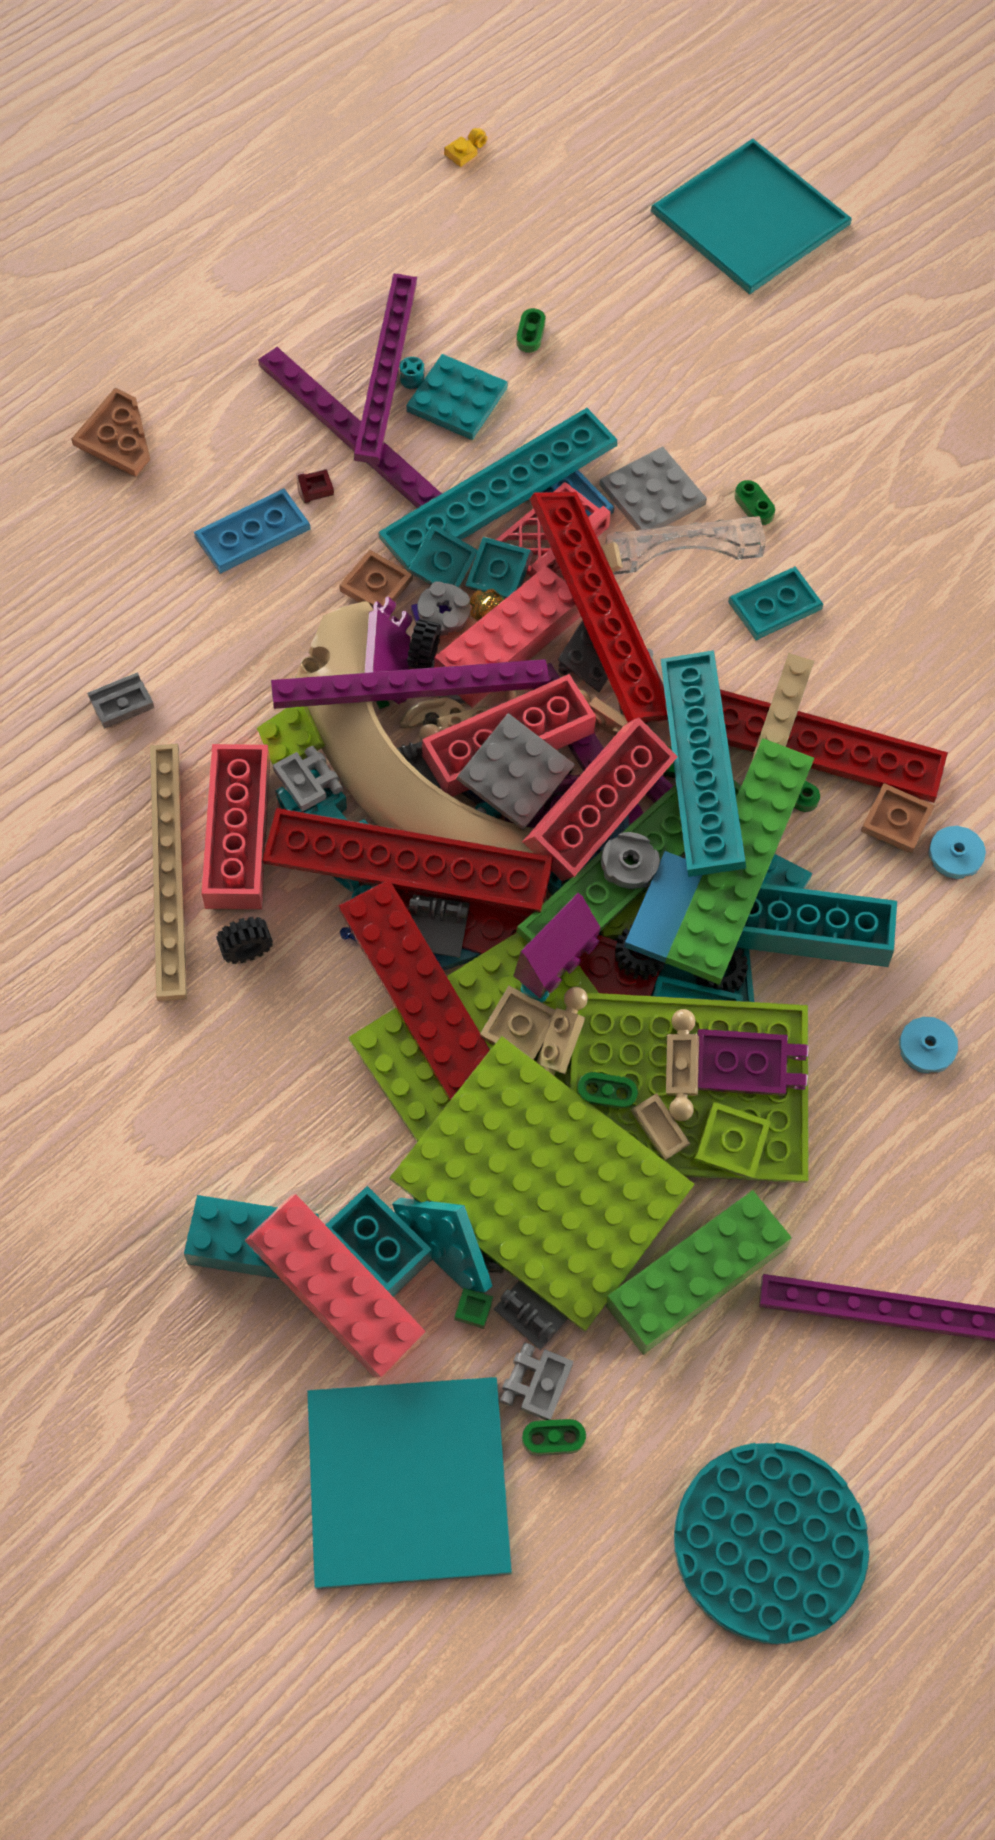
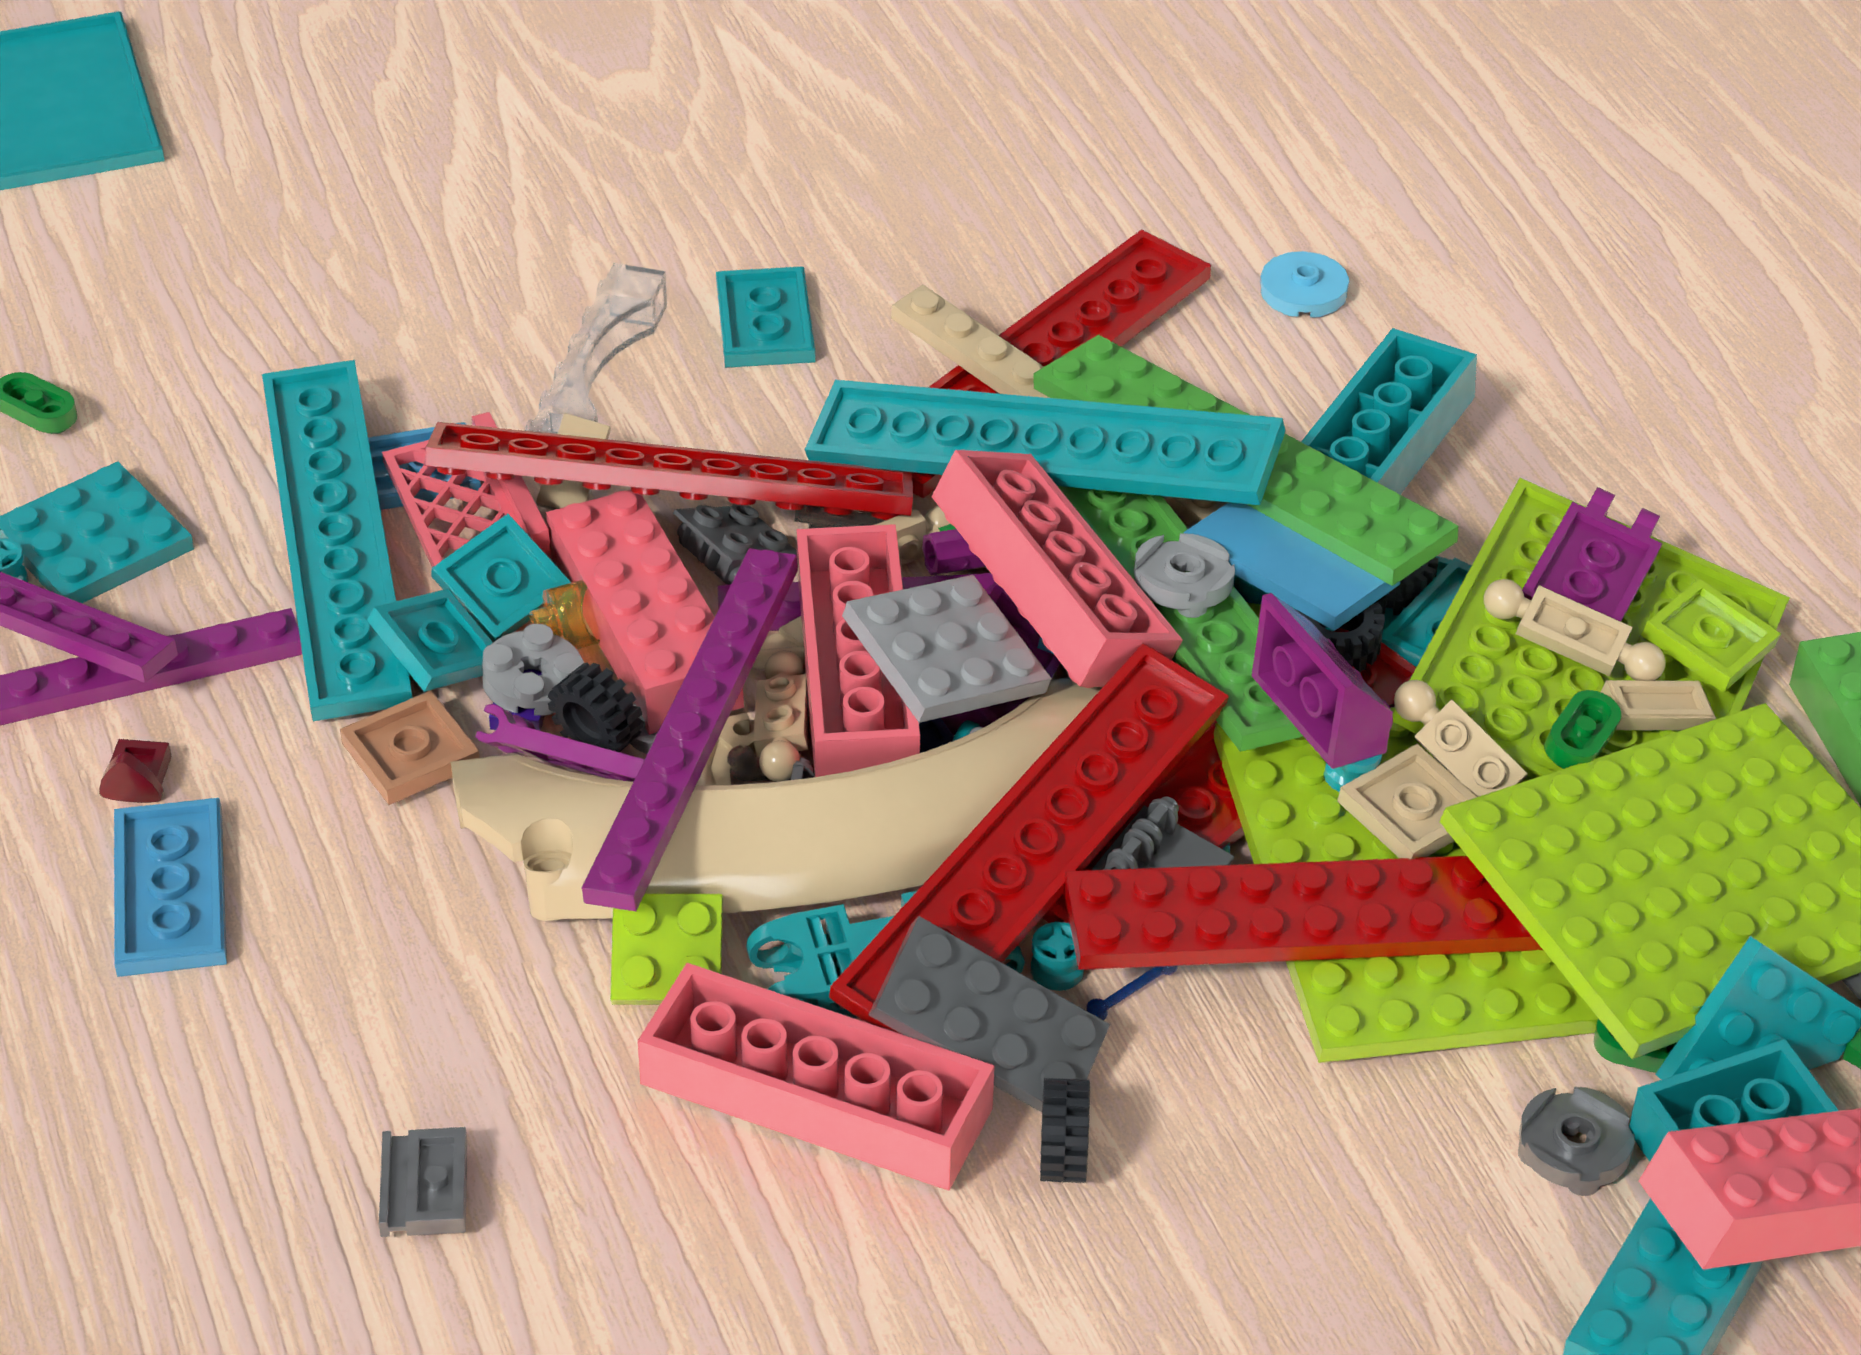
camera: 65 degrees left, 20 degrees down
(168, 873) = (846, 1216): tan plate -> none
(291, 882) = (987, 1011): none -> dark grey plate
(301, 783) = (785, 934): light grey plate -> none
(340, 1159) = (1572, 1164): none -> flat silver plate
(653, 491) = (464, 373): light grey plate -> none
(752, 498) = (563, 276): green plate -> none
(897, 818) = (1221, 316): nougat plate -> none
(919, 1054) = (1607, 414): medium azure plate -> none

